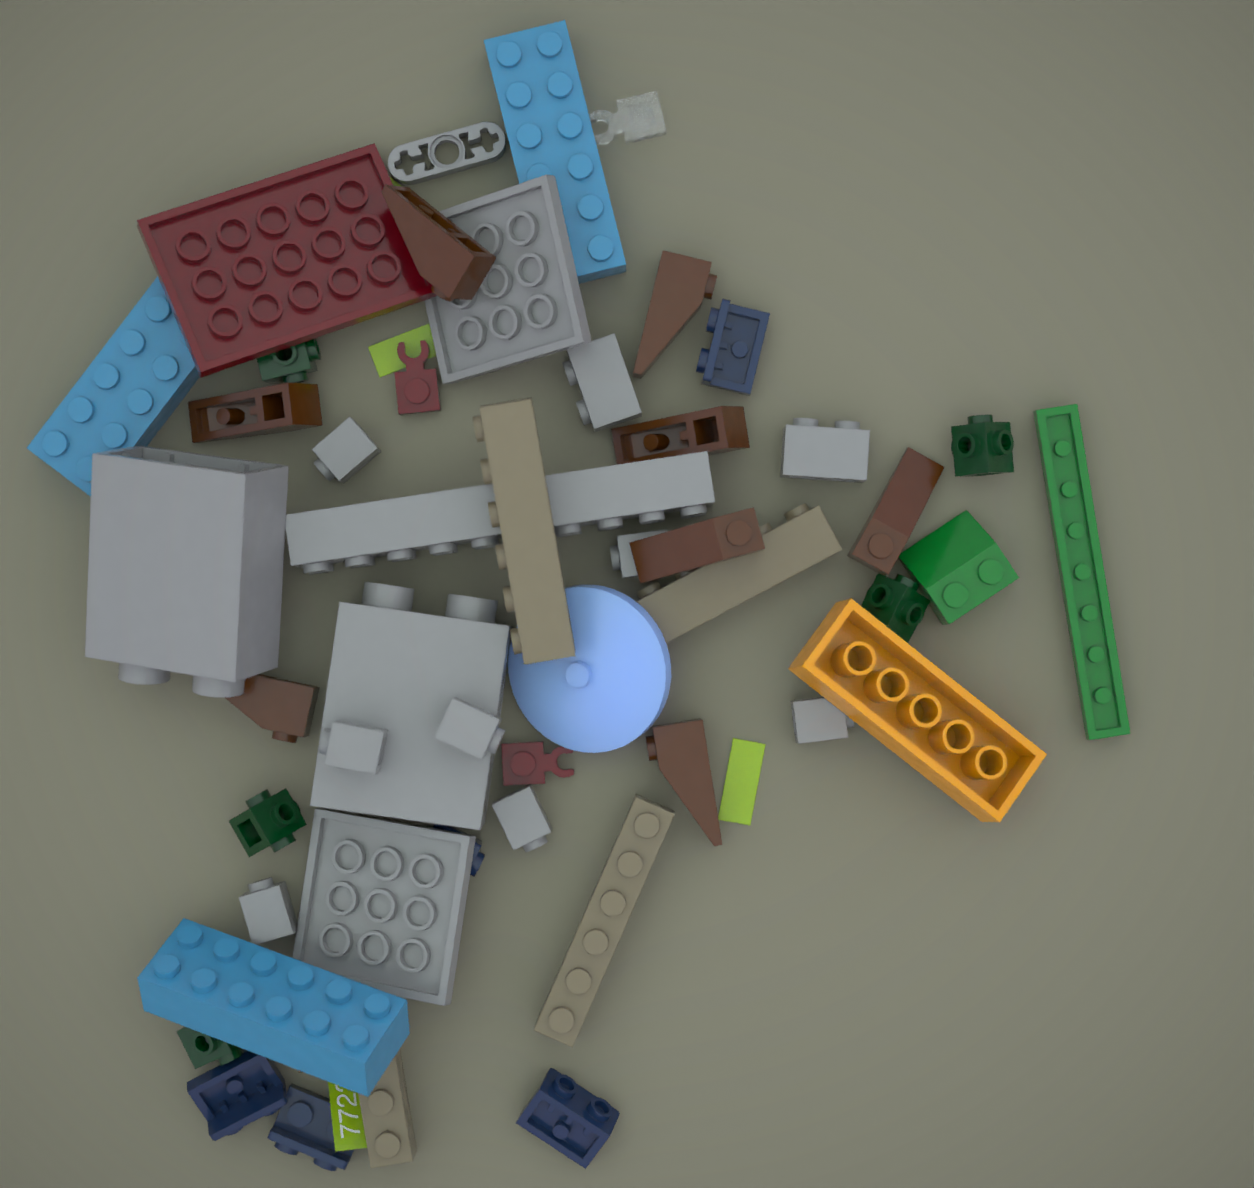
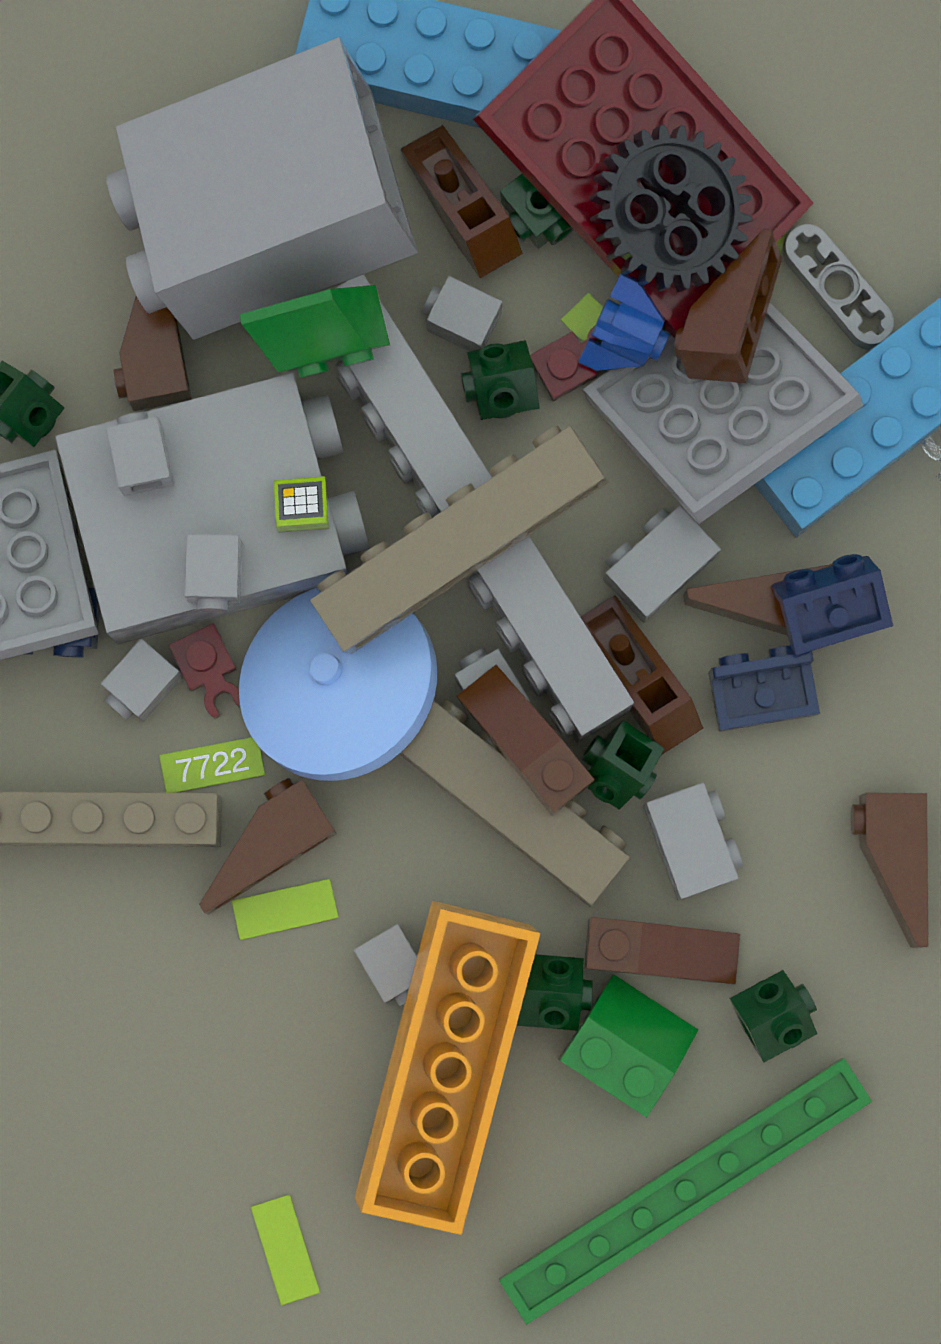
camera: 70 degrees right, 5 degrees down
(316, 224) = (694, 173): none -> black gear
(318, 567) = (319, 329): none -> green slope
(410, 443) = (501, 380): none -> dark green brick
(414, 331) = (627, 329): none -> blue brick
(445, 639) = (301, 504): none -> slope
(608, 791) = (211, 765): none -> lime sticker
(694, 266) = (833, 603): none -> dark blue bracket
(745, 480) = (621, 764): none -> dark green brick
(897, 301) = (896, 848): none -> reddish brown slope
(996, 889) = (285, 1249): none -> lime sticker

